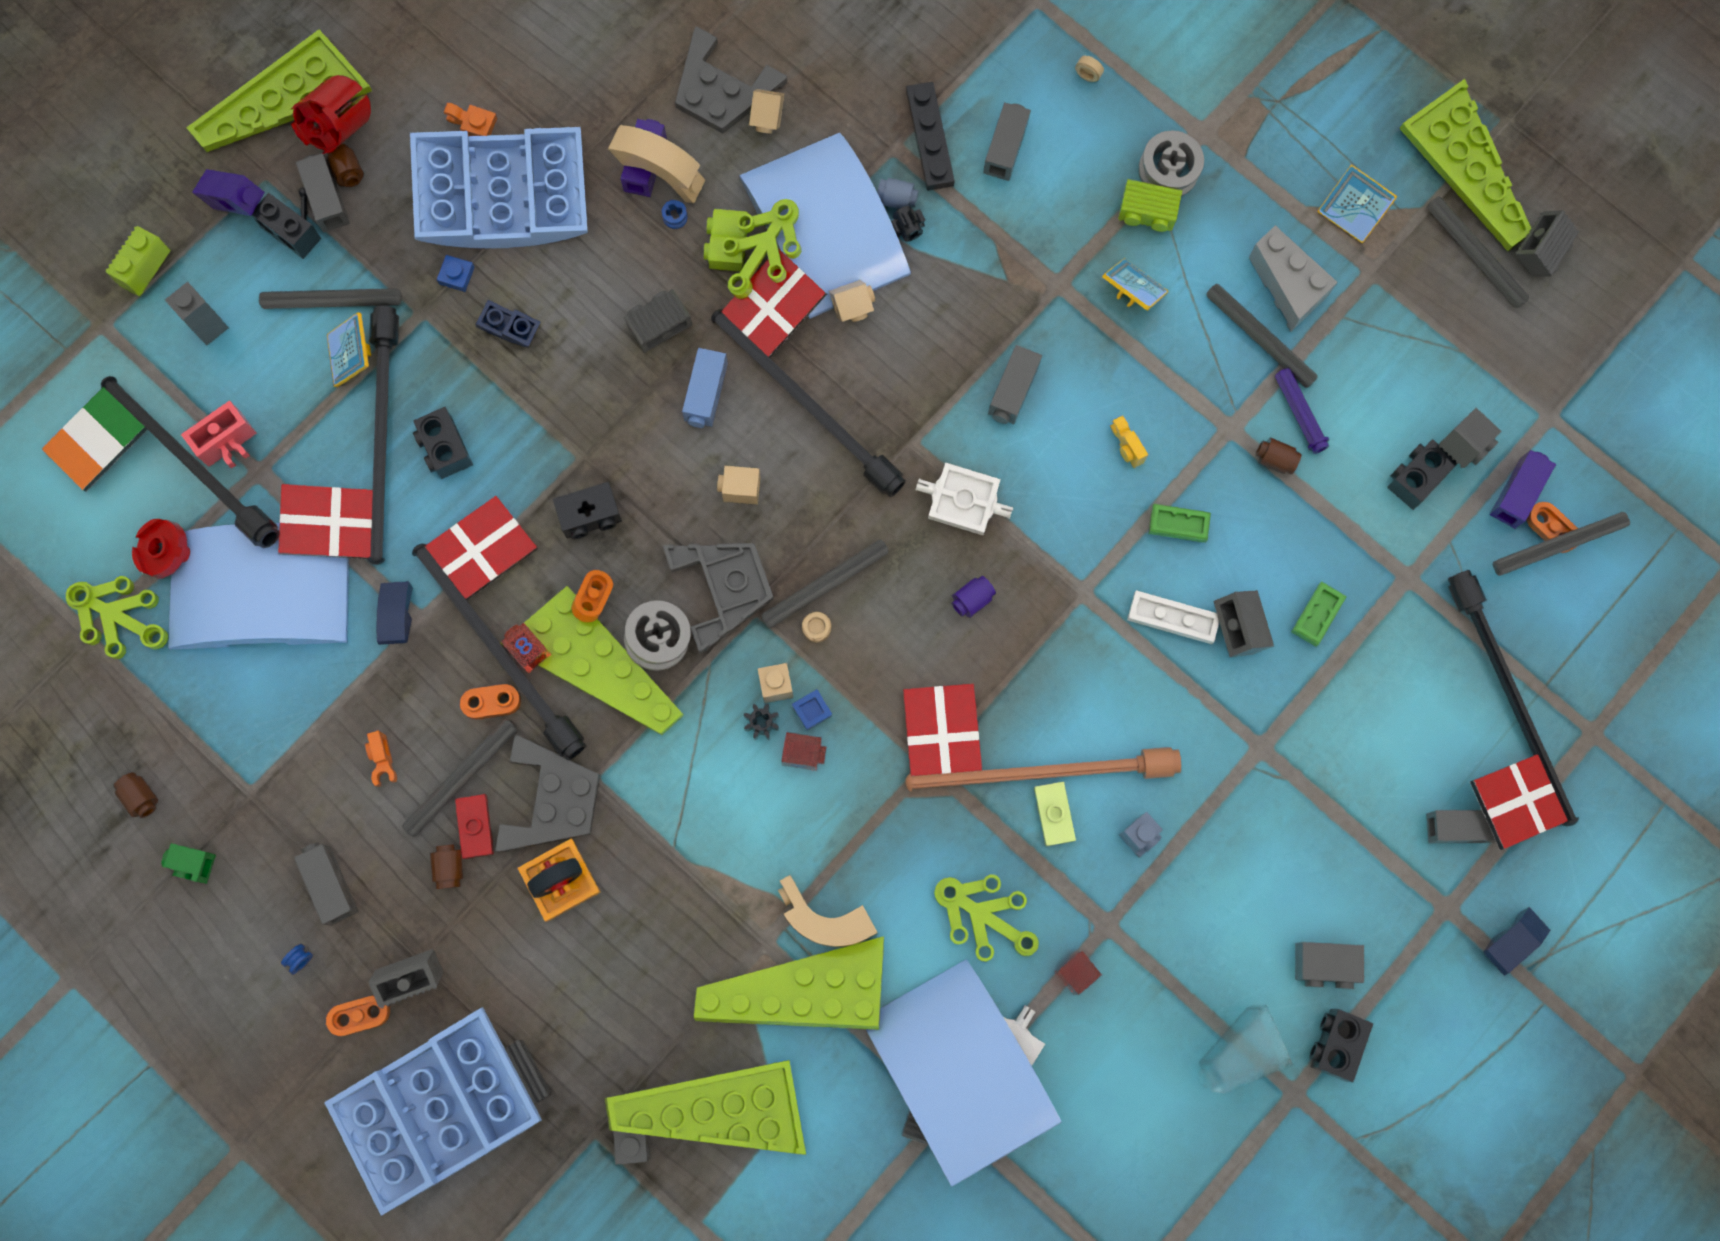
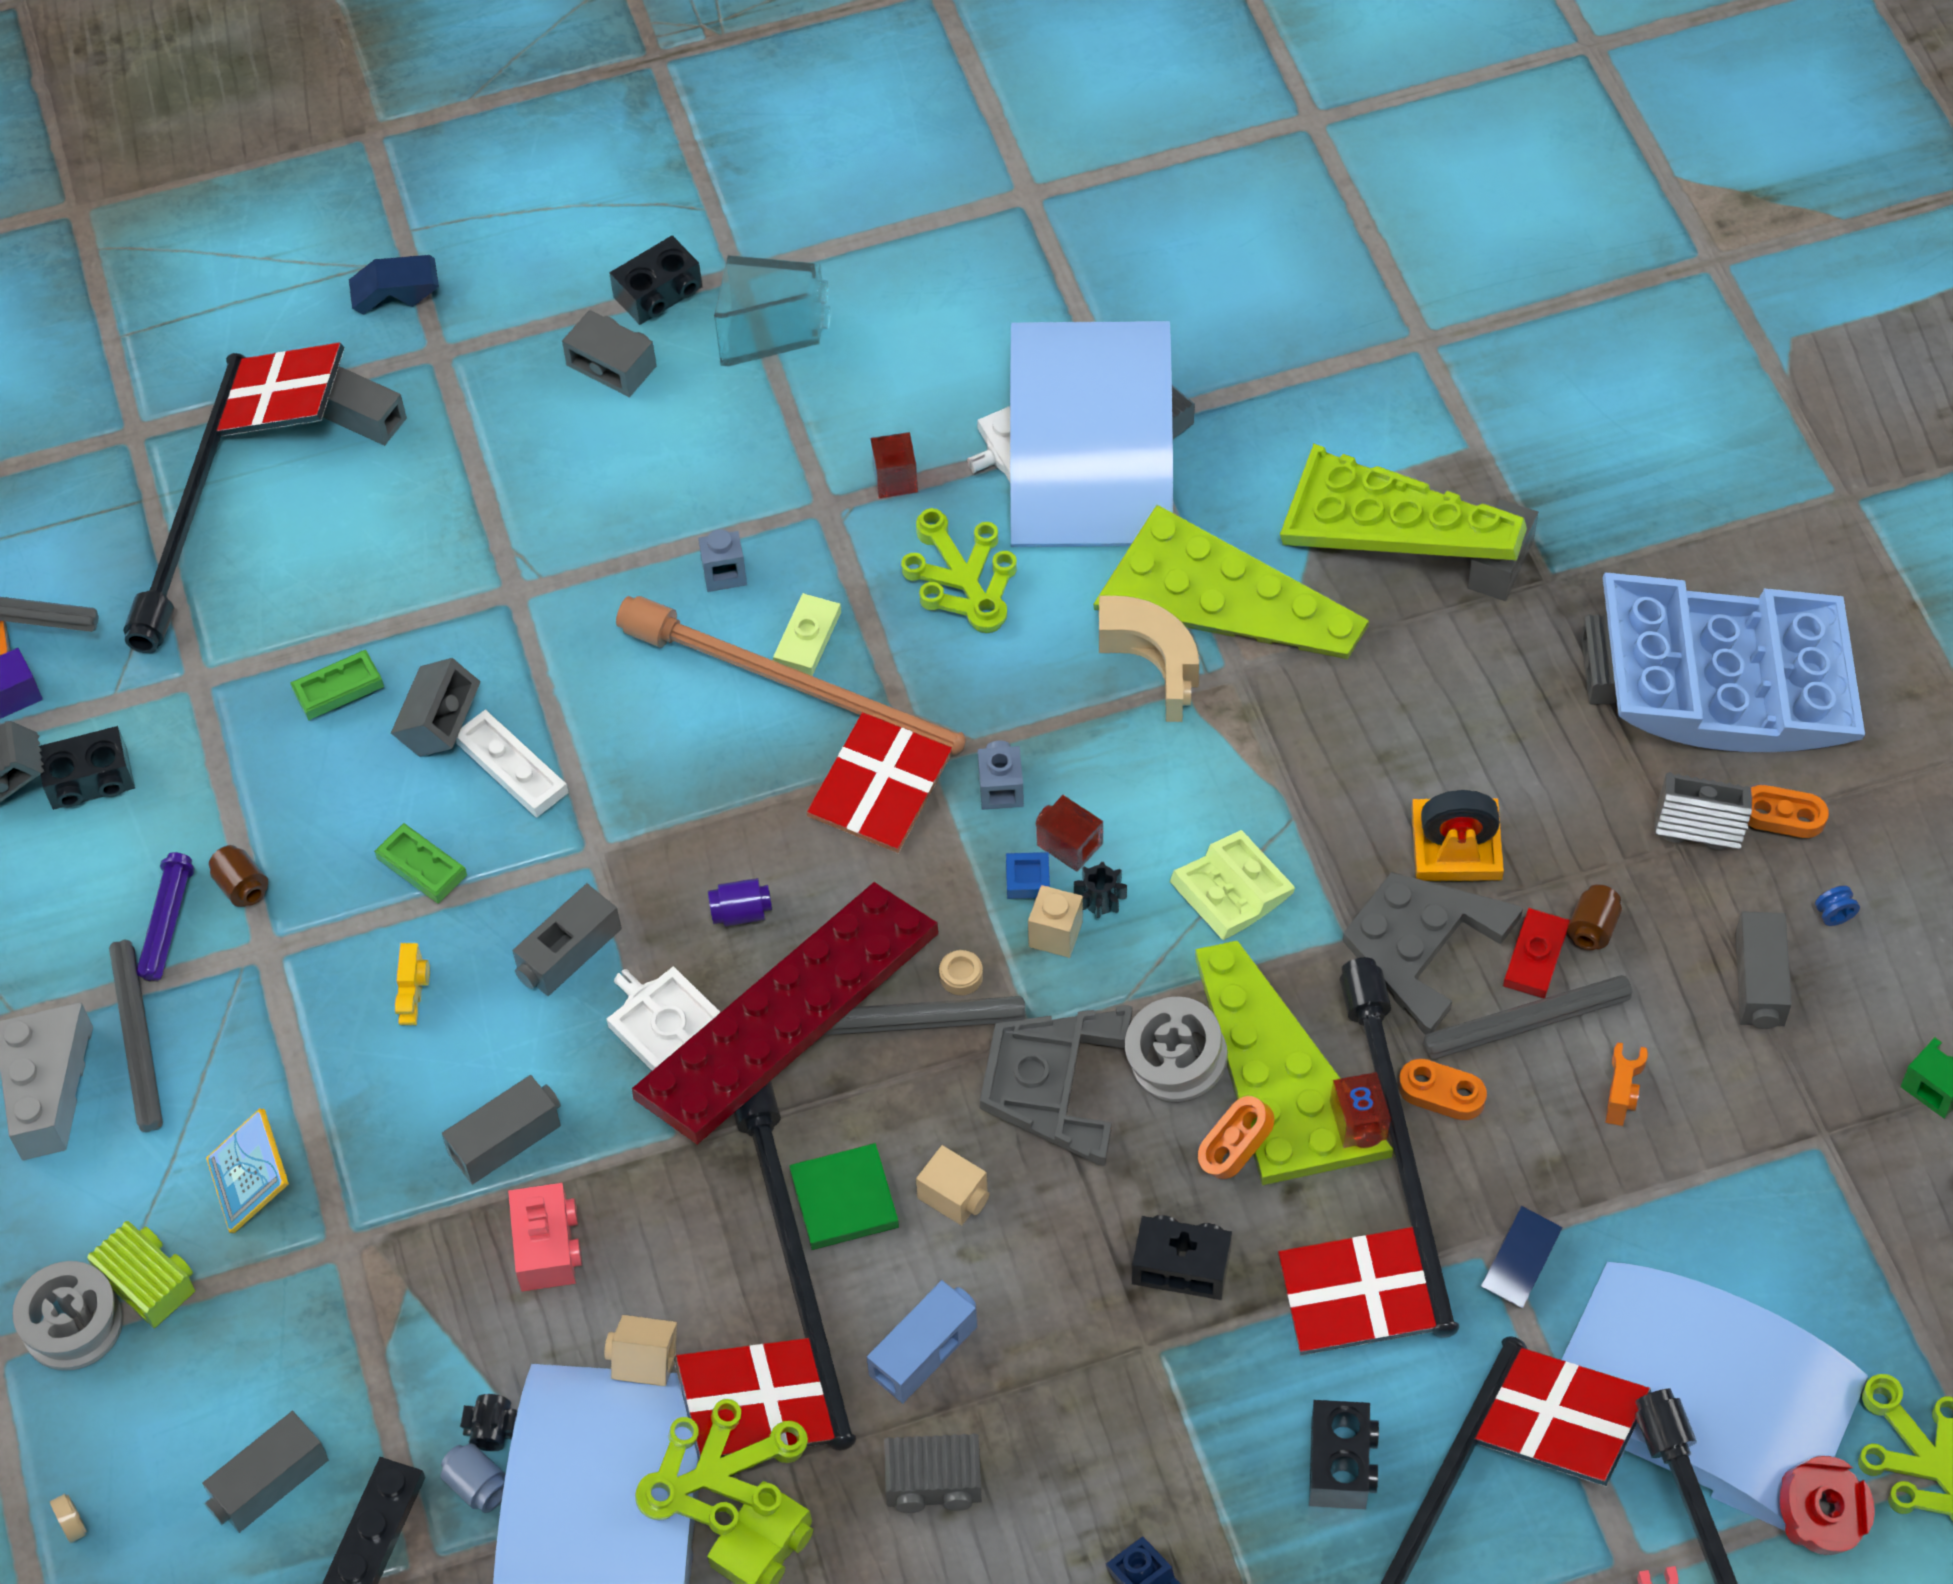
camera: 145 degrees left, 20 degrees down
(684, 774) = (1232, 884): none -> yellowish green slope
(800, 452) = (844, 1196): none -> green tile
(868, 783) = (1000, 776): none -> sand blue brick
(897, 535) = (784, 1012): none -> dark red plate
(949, 337) = (543, 1236): none -> coral brick
(1058, 517) = (566, 940): none -> dark grey brick

